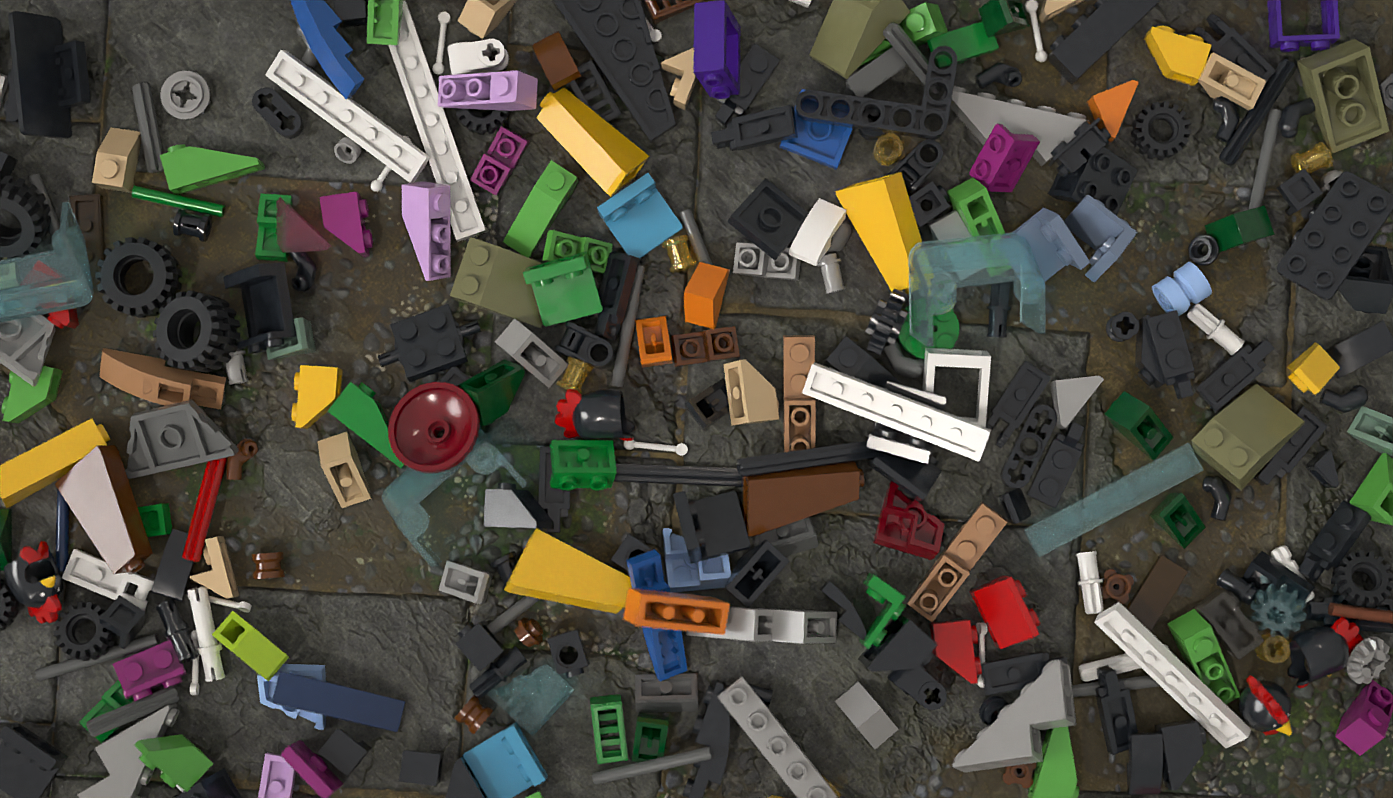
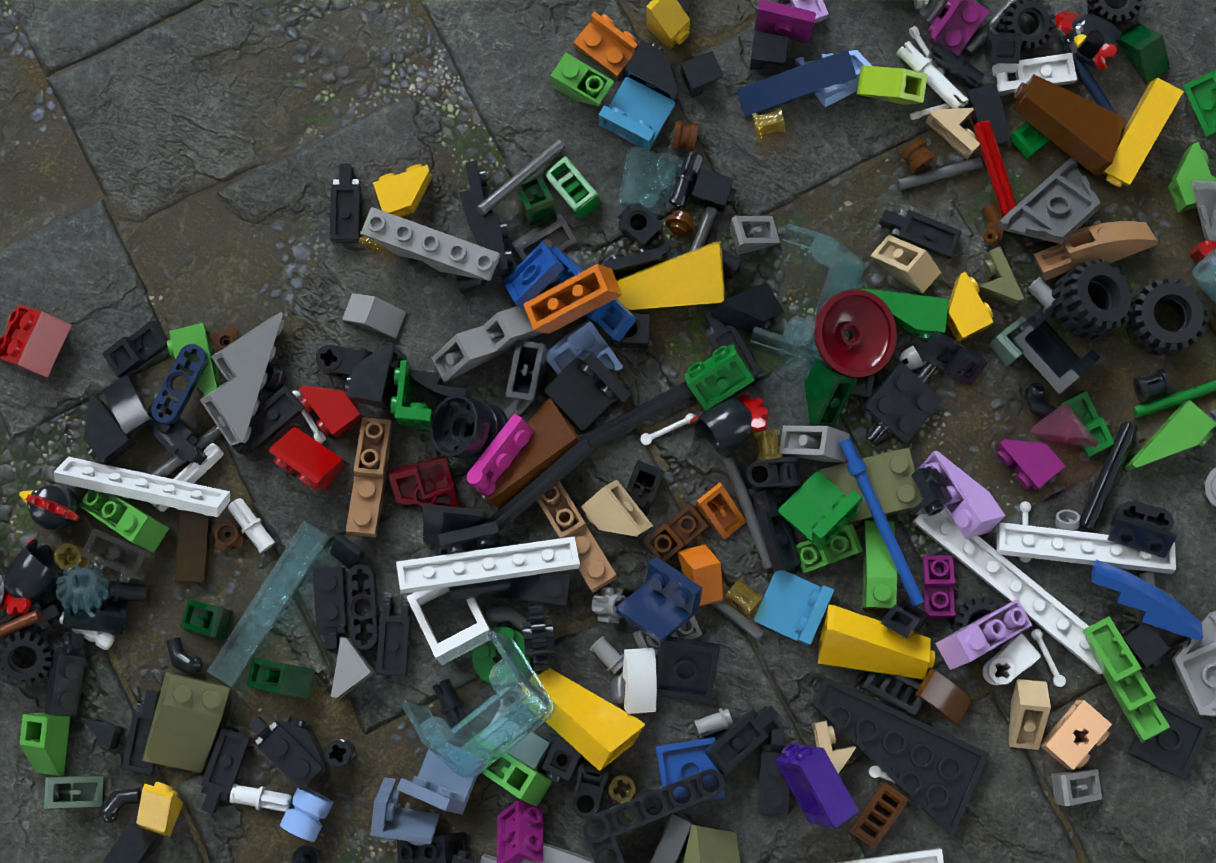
camera: 155 degrees right, 5 degrees down
(257, 537) = (940, 173): none -> dark grey bar
(267, 393) = (1004, 286): none -> olive slope
(284, 169) = (1108, 475): none -> black axle
(285, 88) = (1139, 537): none -> black hinge
(309, 490) = (922, 232): none -> black hinge
(355, 356) = (953, 357): none -> black slope
(387, 680) = (768, 123): none -> clear yellow bush
(392, 378) = (913, 358): none -> light grey hinge
(453, 244) = (933, 489): none -> black bracket
(508, 304) = (857, 469): none -> blue bar
(549, 145) = (905, 619): none -> black slope
(580, 617) = (642, 259): none -> black hinge
(697, 661) = (533, 274): none -> blue plate
(758, 289) = (662, 602): none -> dark blue bracket
(772, 158) = (714, 723): none -> light grey pin
(804, 316) = (606, 602): none -> light grey gear
(827, 506) = (499, 455): none -> dark pink plate
(841, 548) = (465, 427): none -> black wheel
(1071, 770) = (178, 407): none -> dark blue beam

